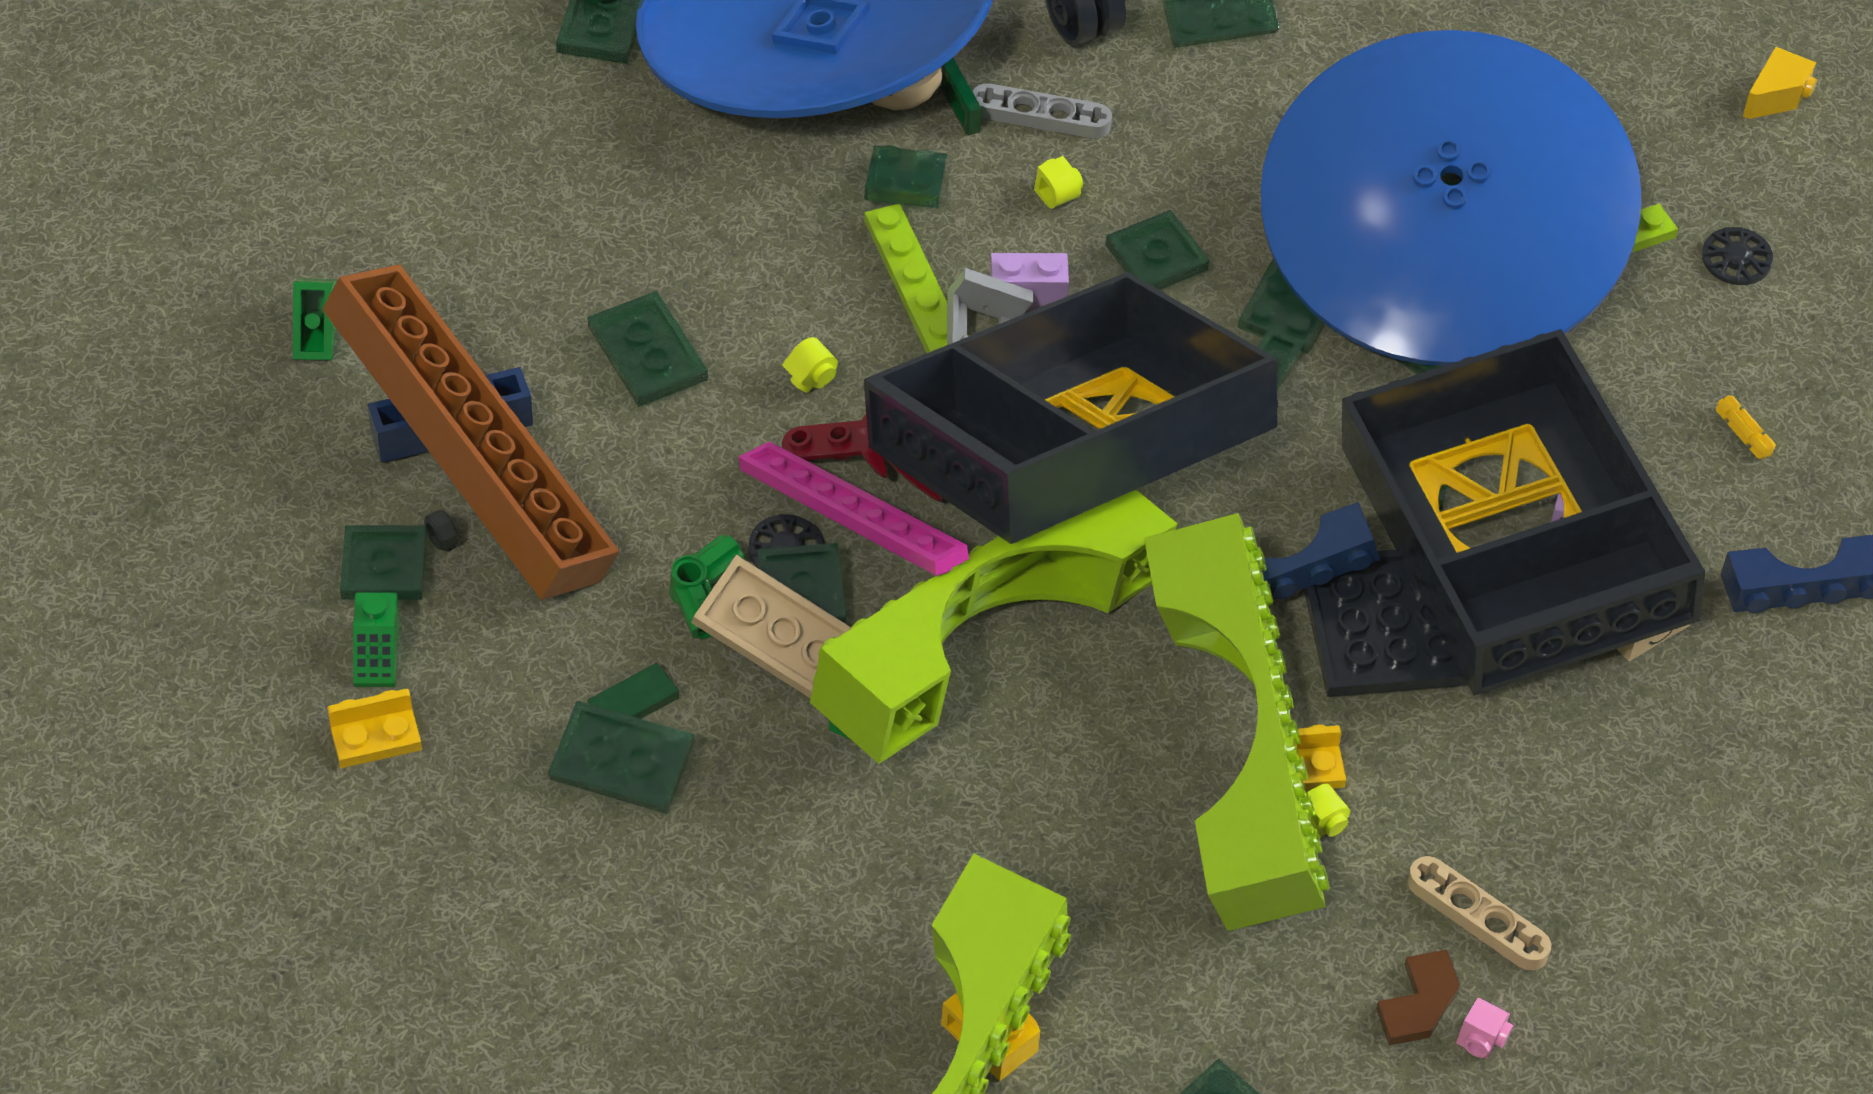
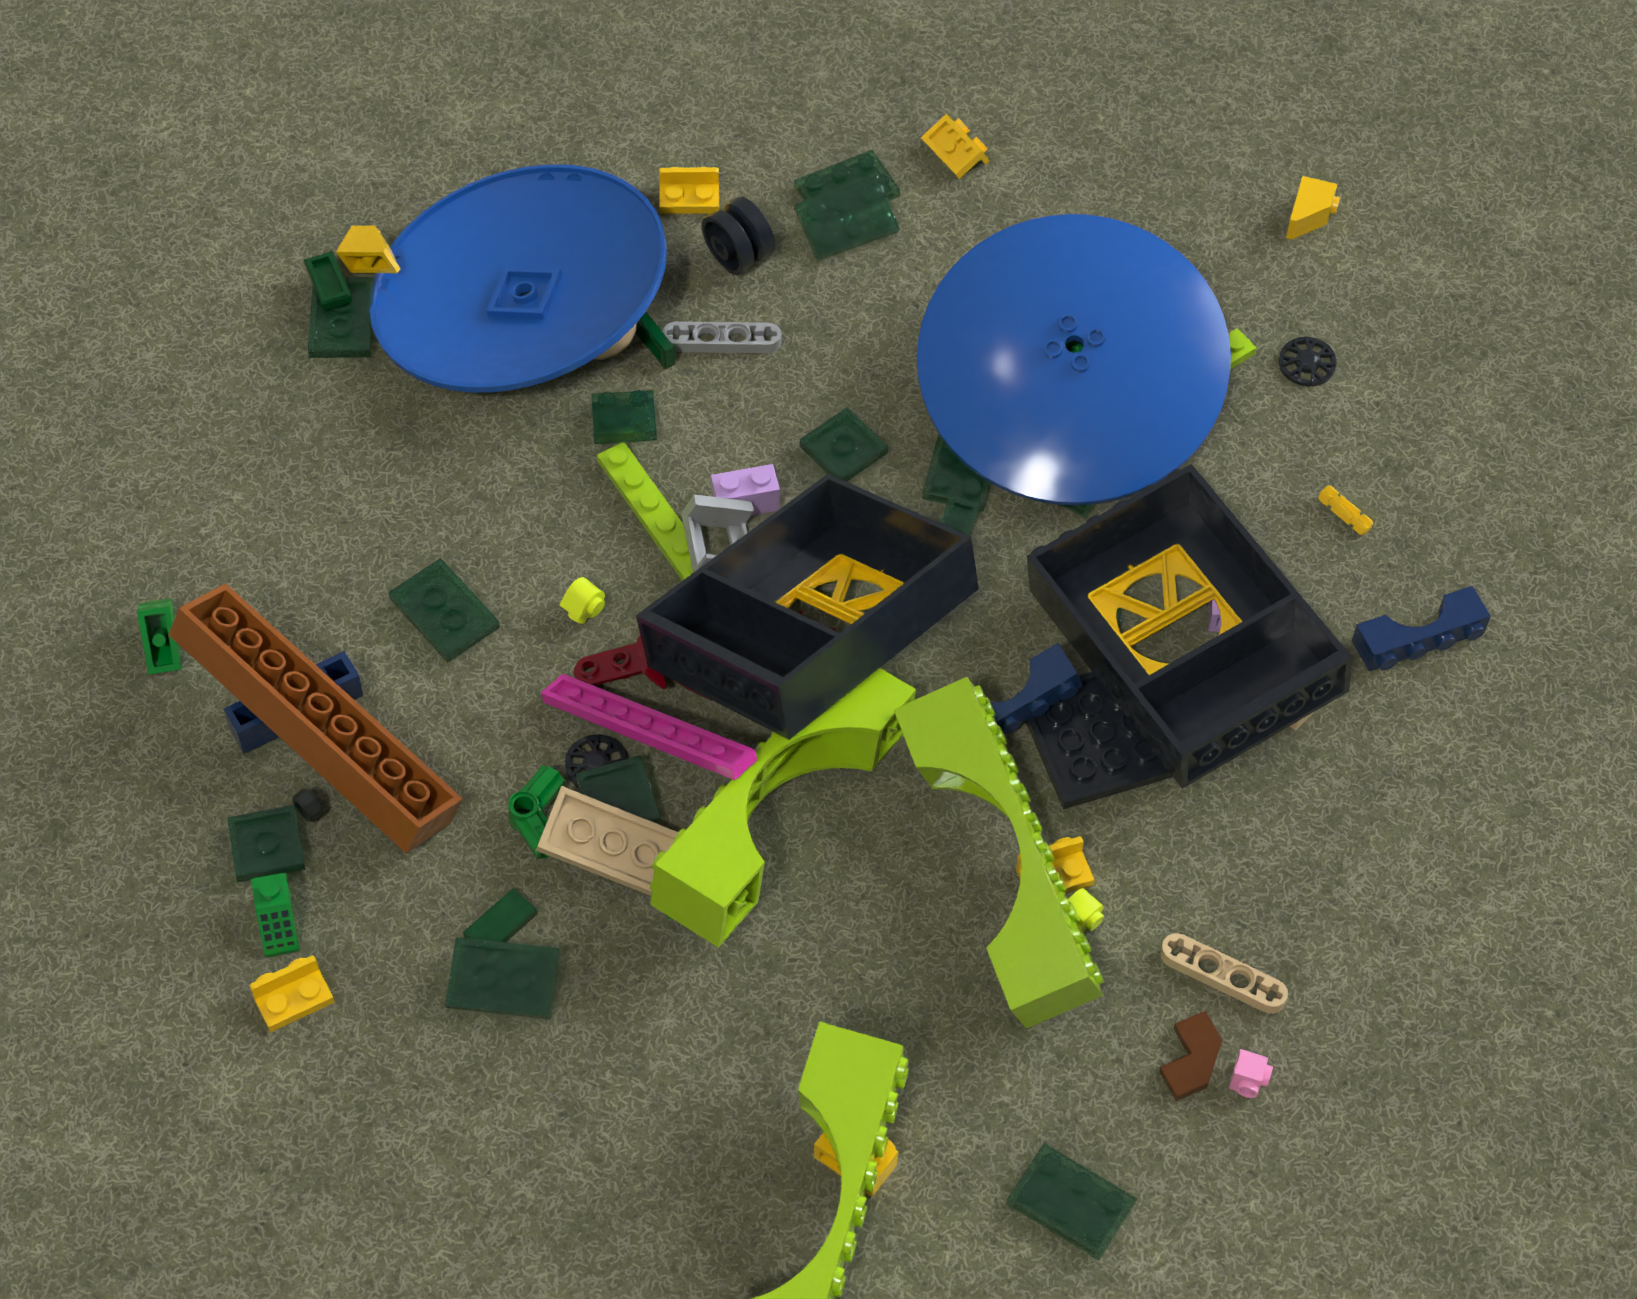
camera: 10 degrees left, 5 degrees up
(1057, 182) = (749, 399): neon yellow plate -> none

